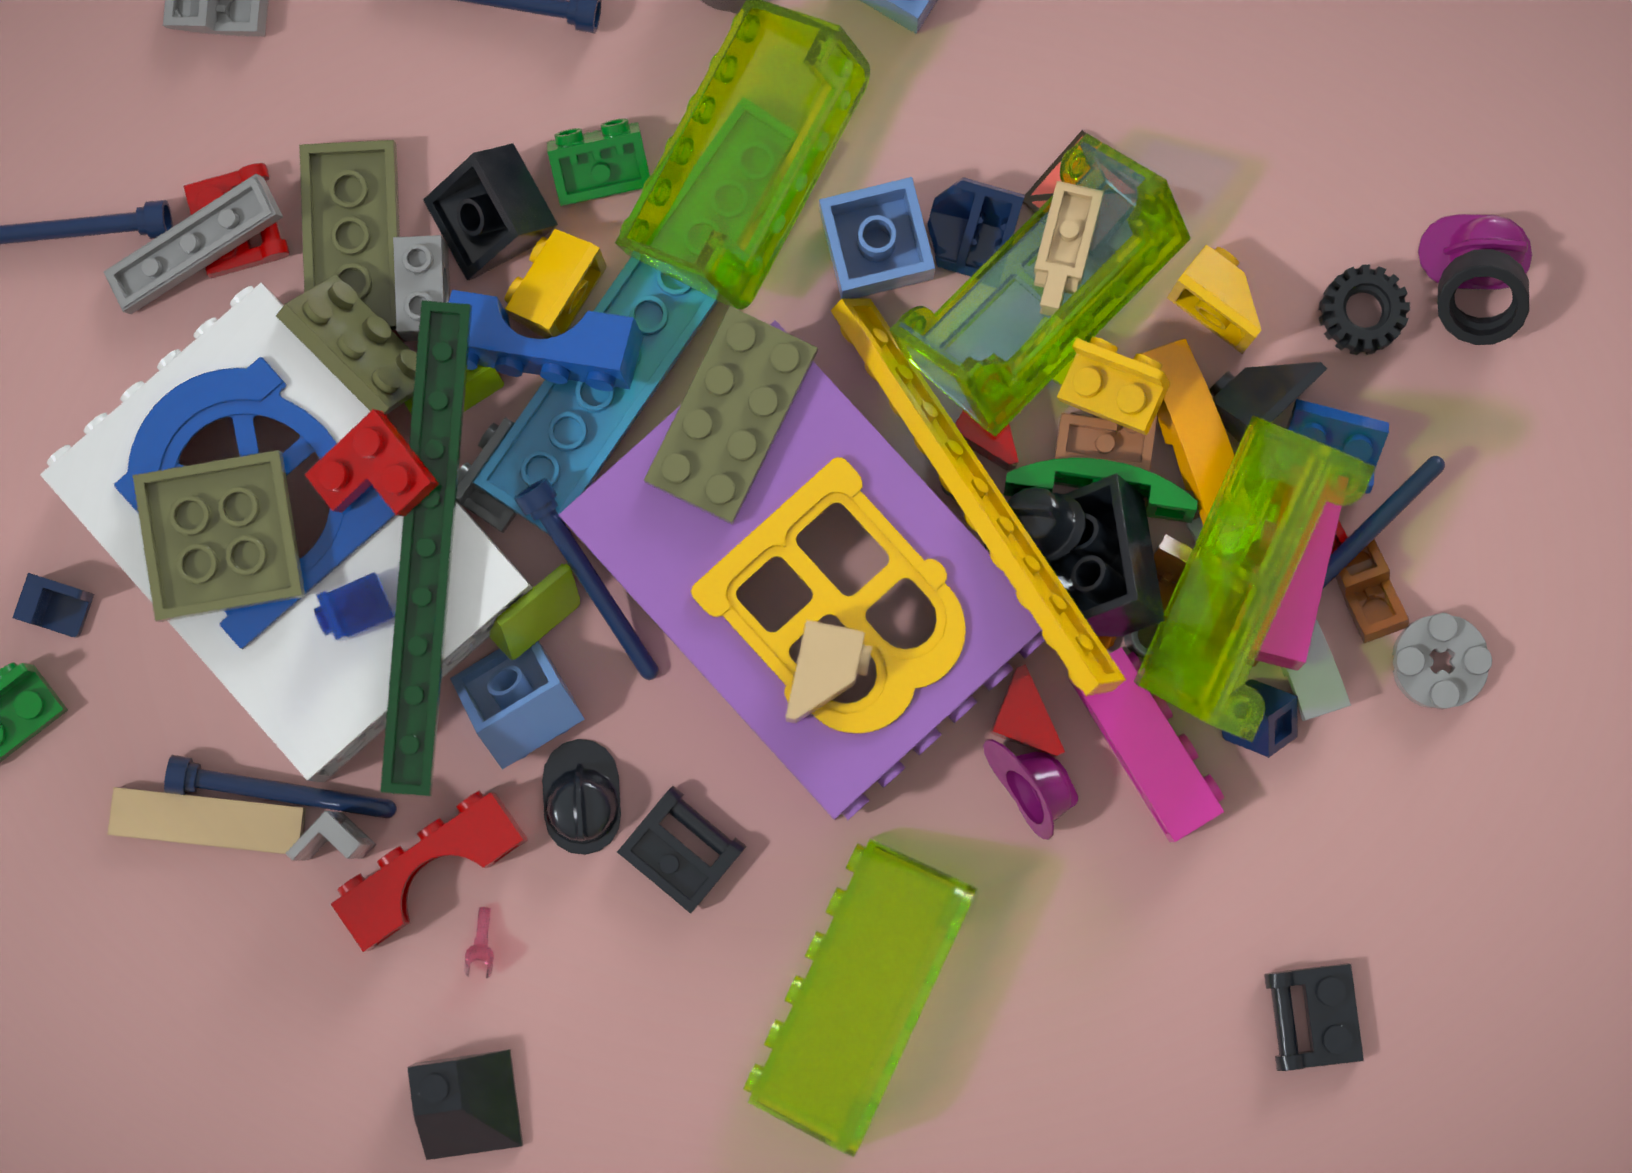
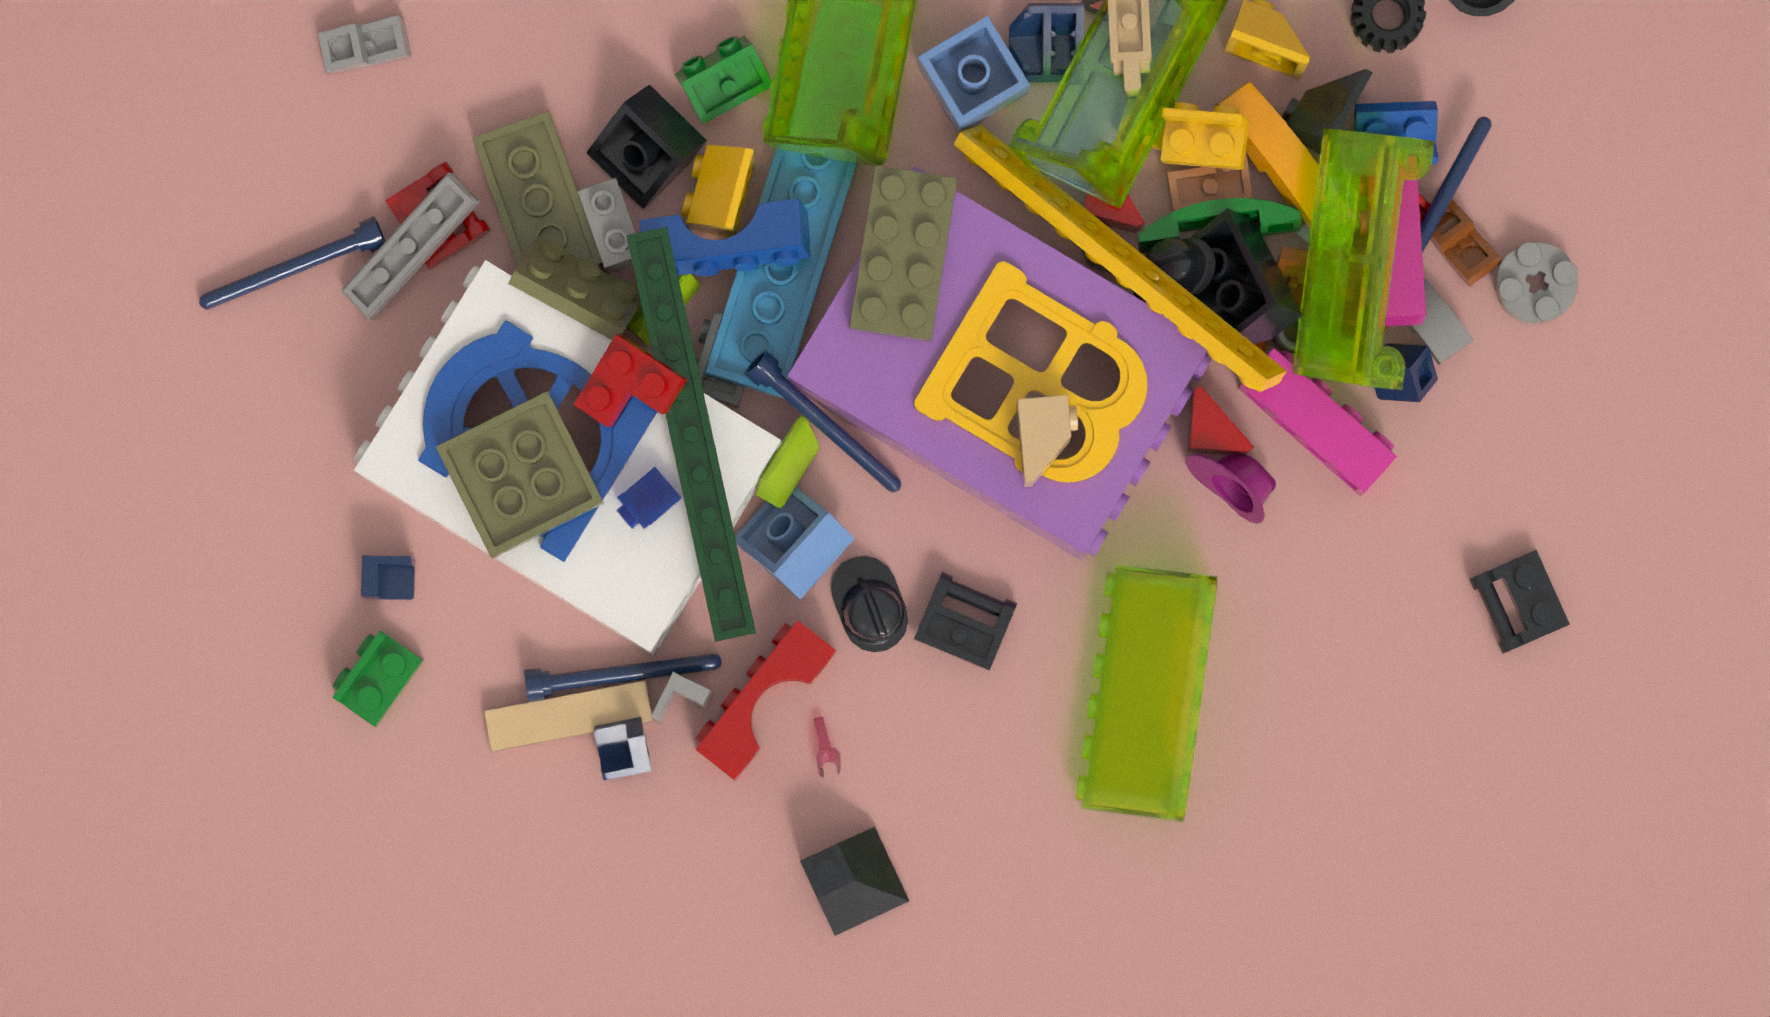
camera: 25 degrees left, 0 degrees up
(253, 877) = (622, 748): none -> panel

